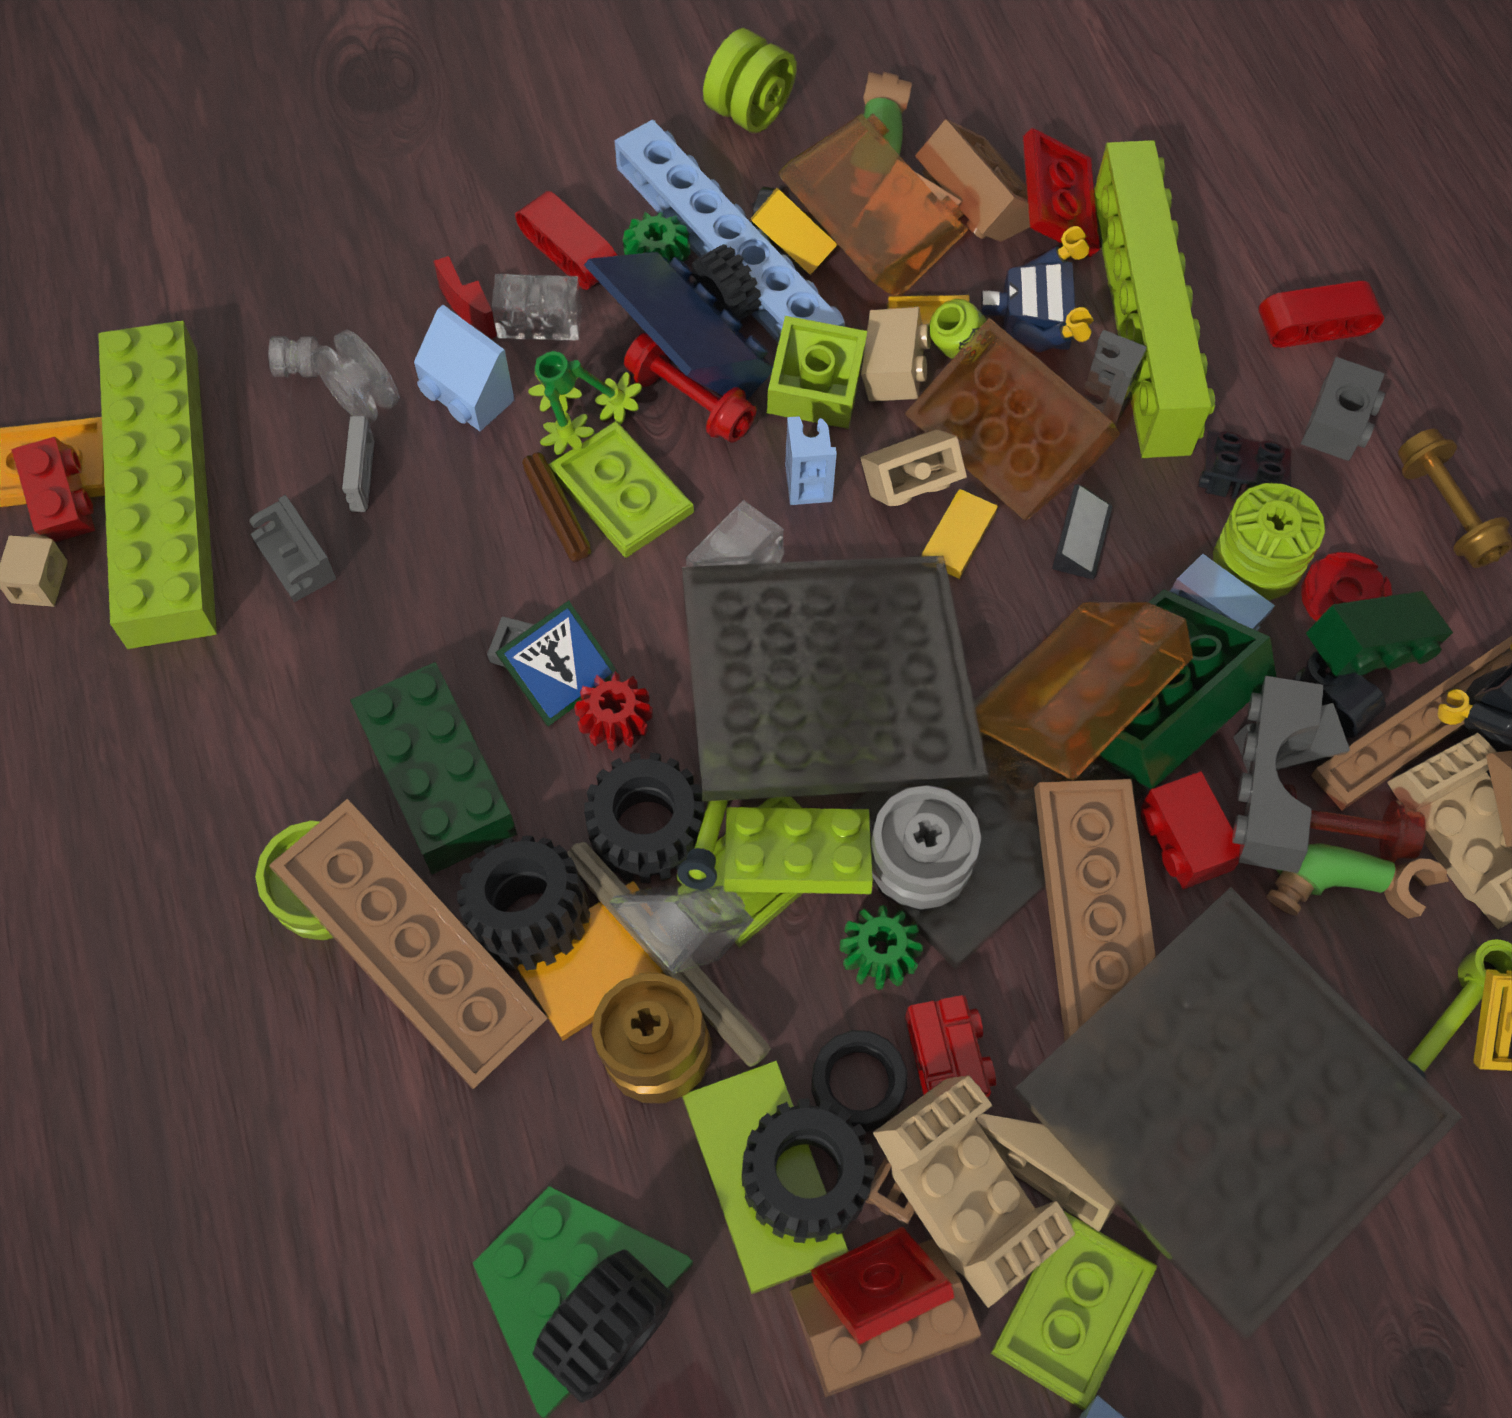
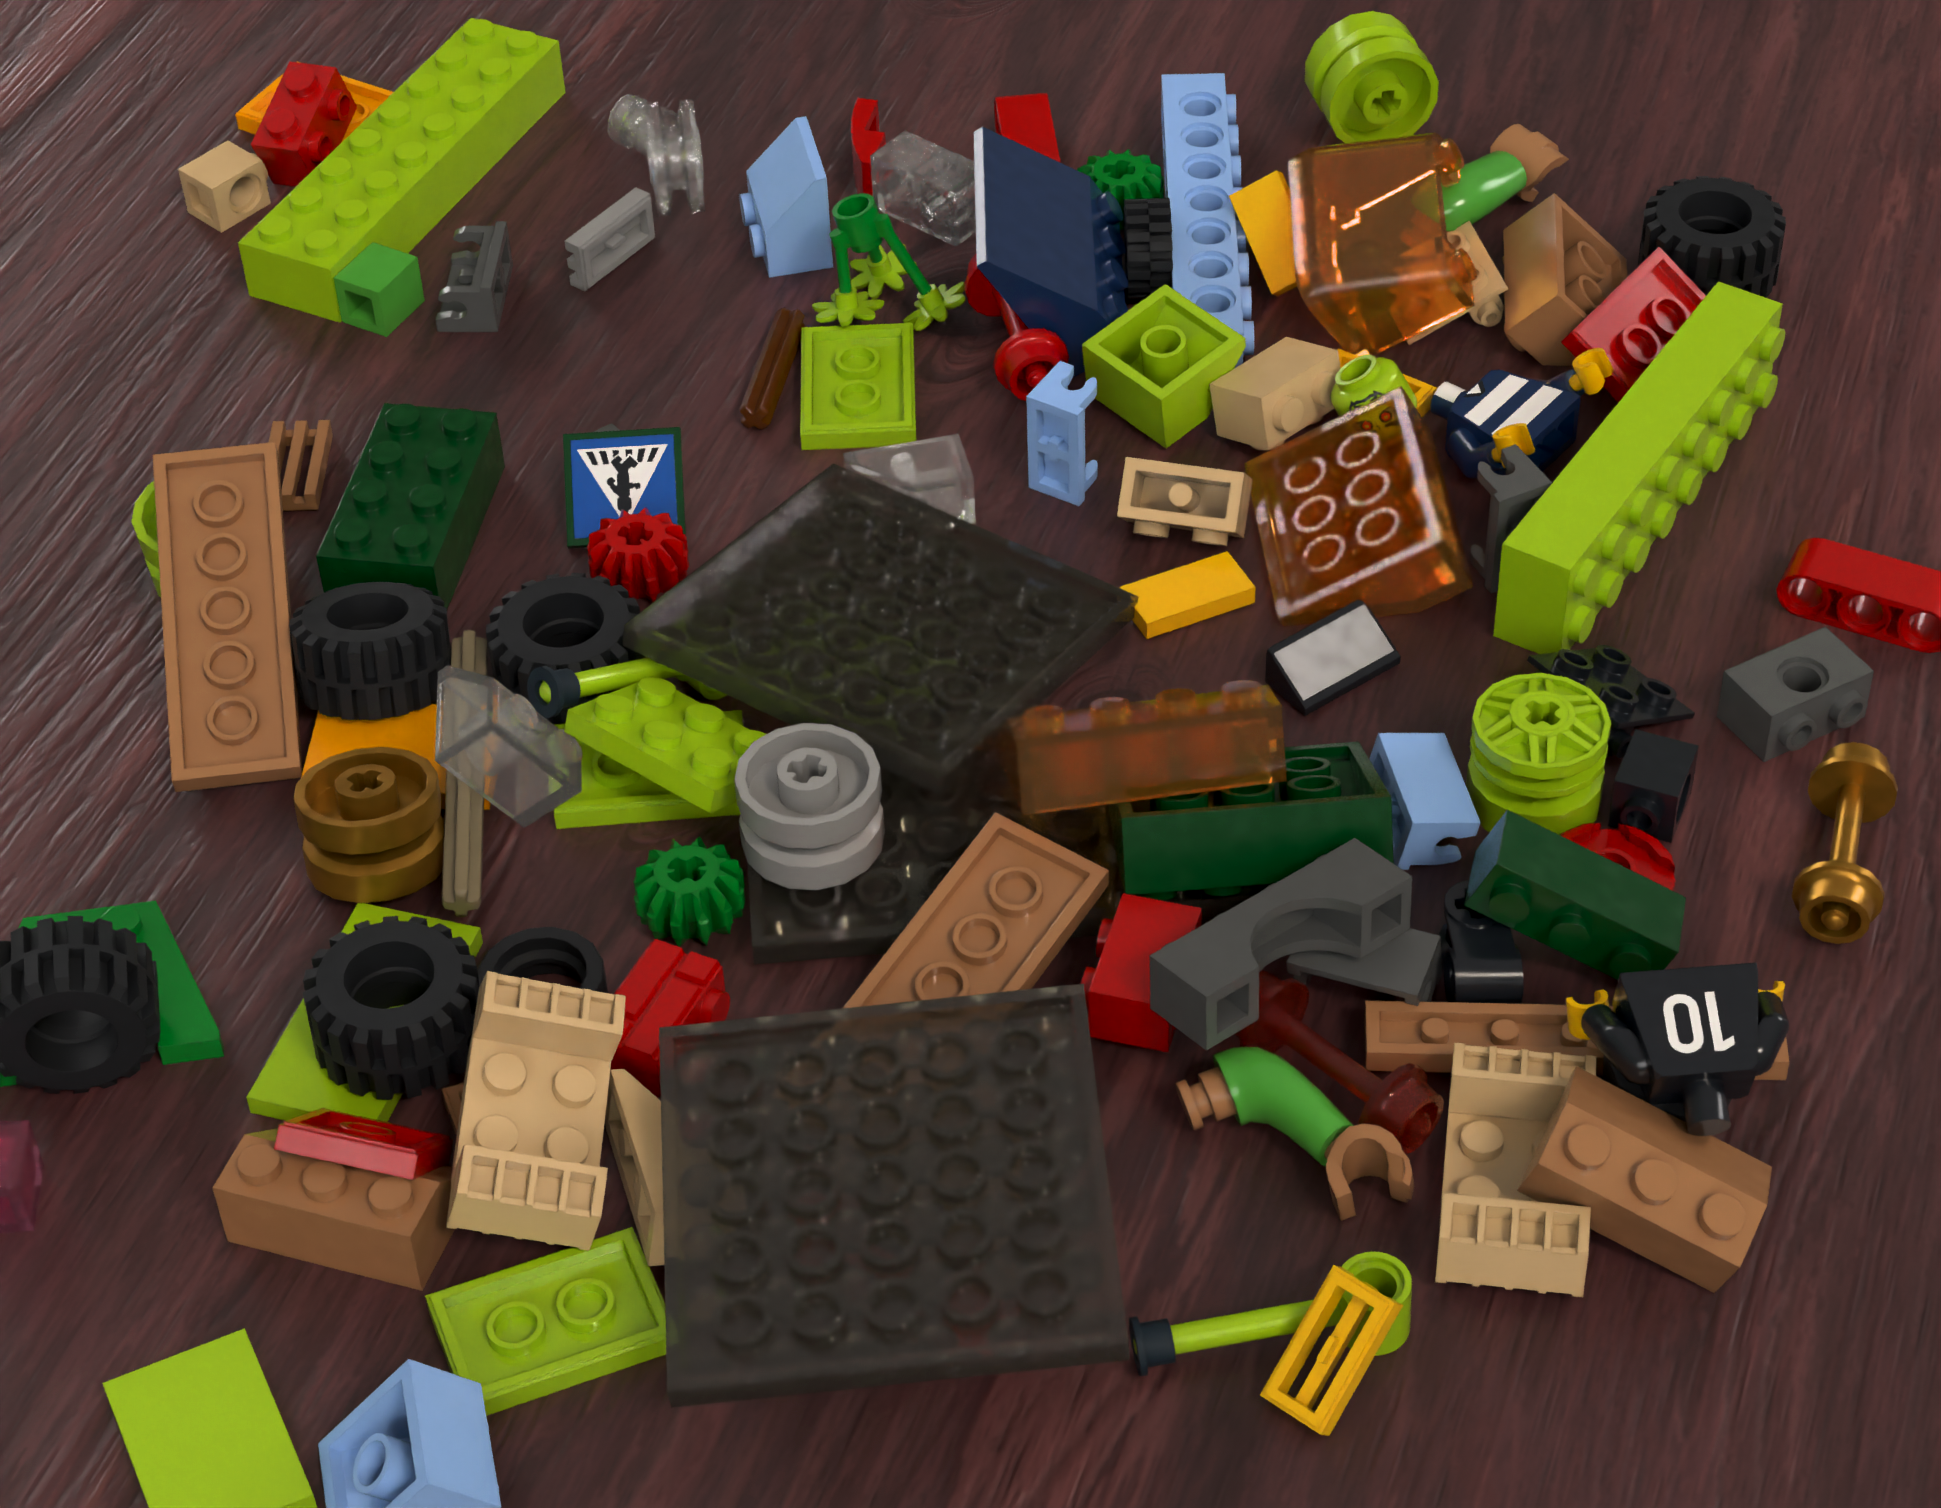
camera: 40 degrees right, 20 degrees down
(233, 596) = (379, 289): none -> bright green brick
(285, 747) = (297, 440): none -> medium nougat tile
(1039, 95) = (1717, 232): none -> black tyre
(1340, 516) = (1653, 784): none -> black brick

